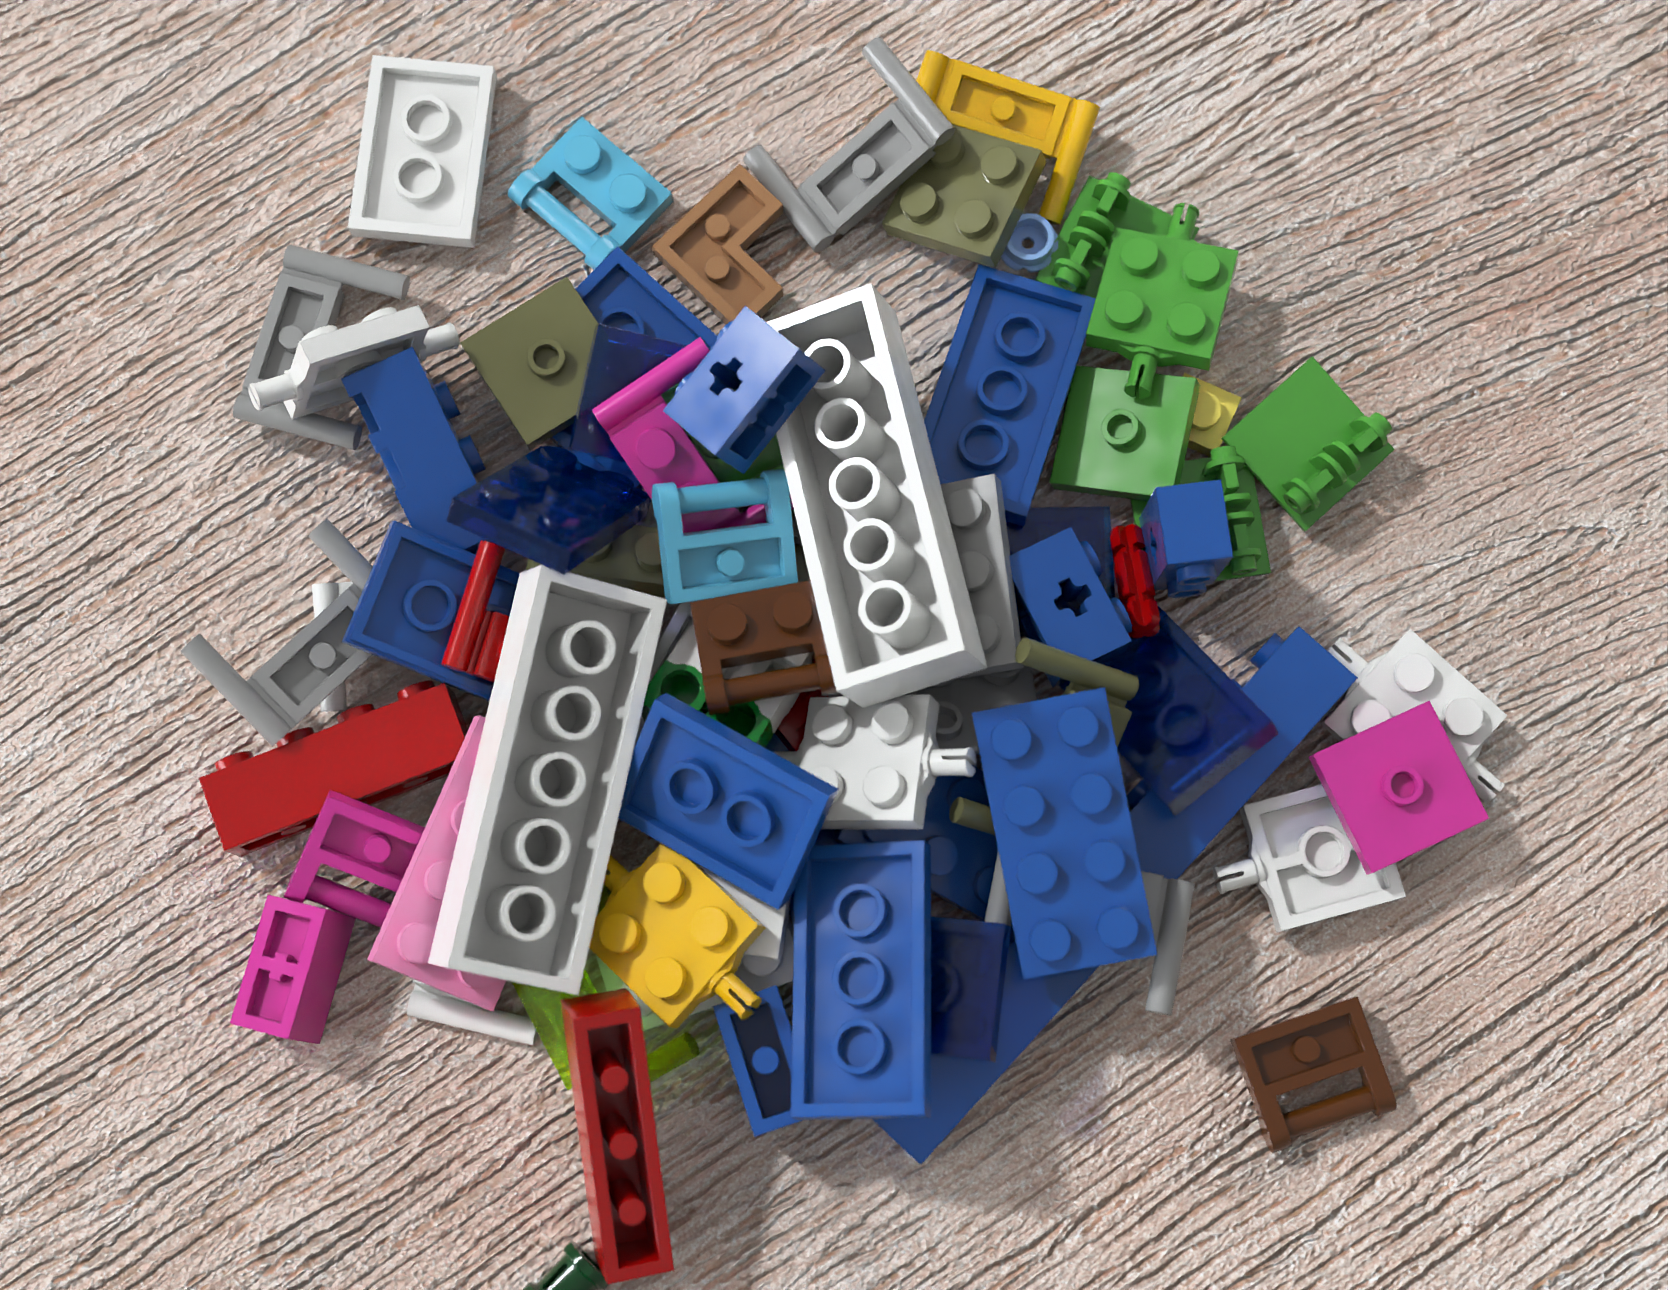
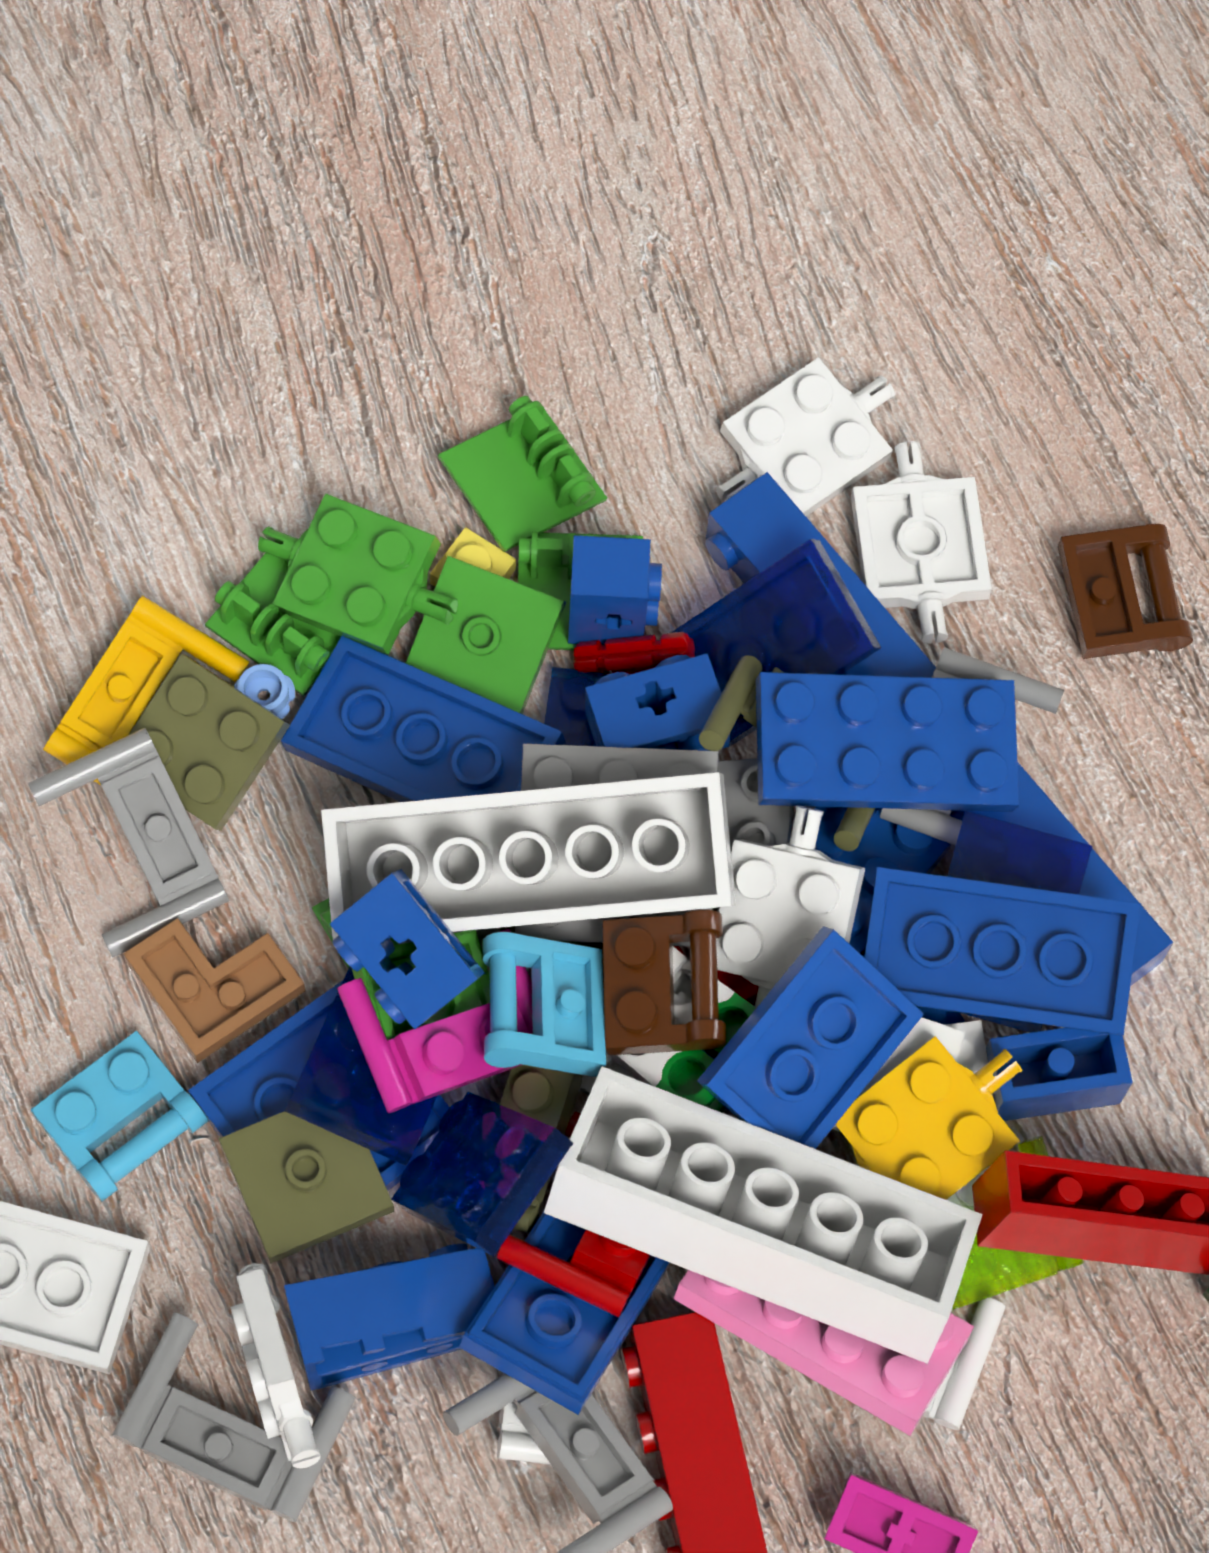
camera: 85 degrees left, 10 degrees down
(361, 844) = (786, 1434): dark pink plate -> none
(1398, 787) = (875, 459): dark pink plate -> none

